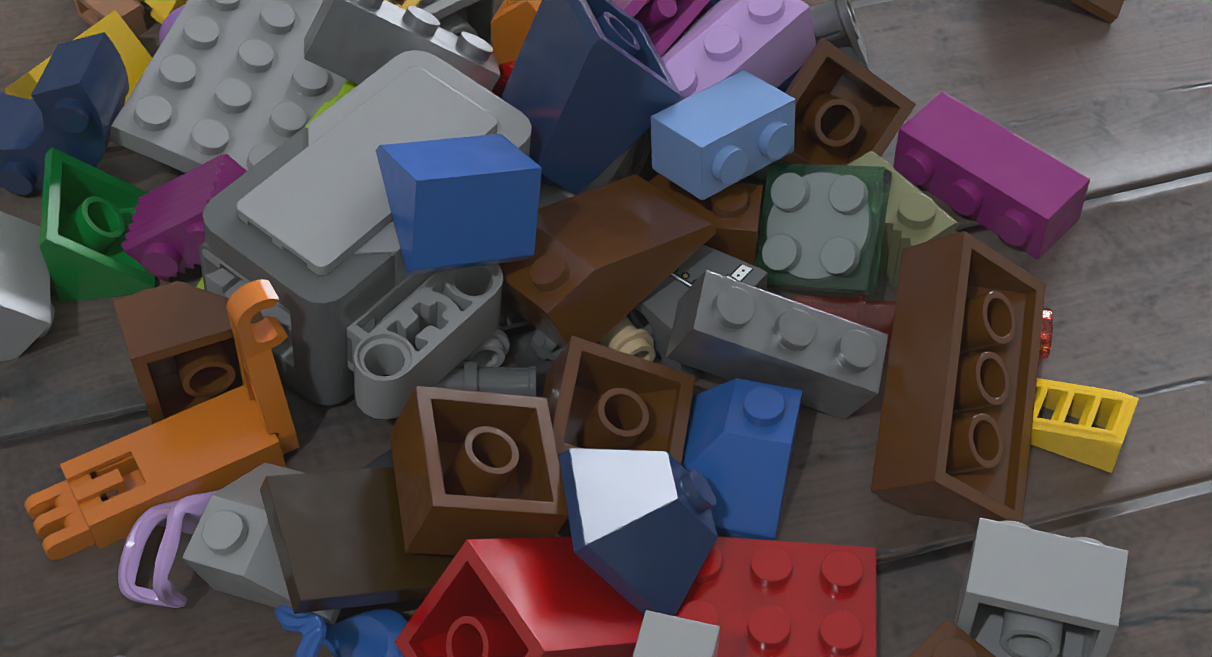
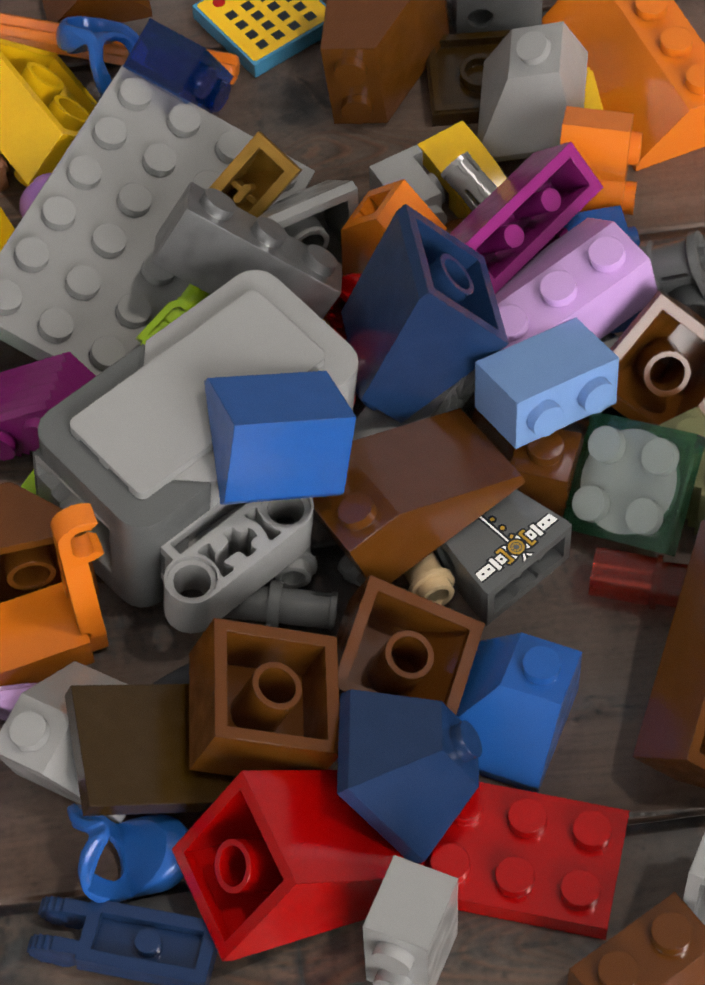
camera: 10 degrees right, 5 degrees up
(777, 342) = (566, 603): flat silver brick -> none

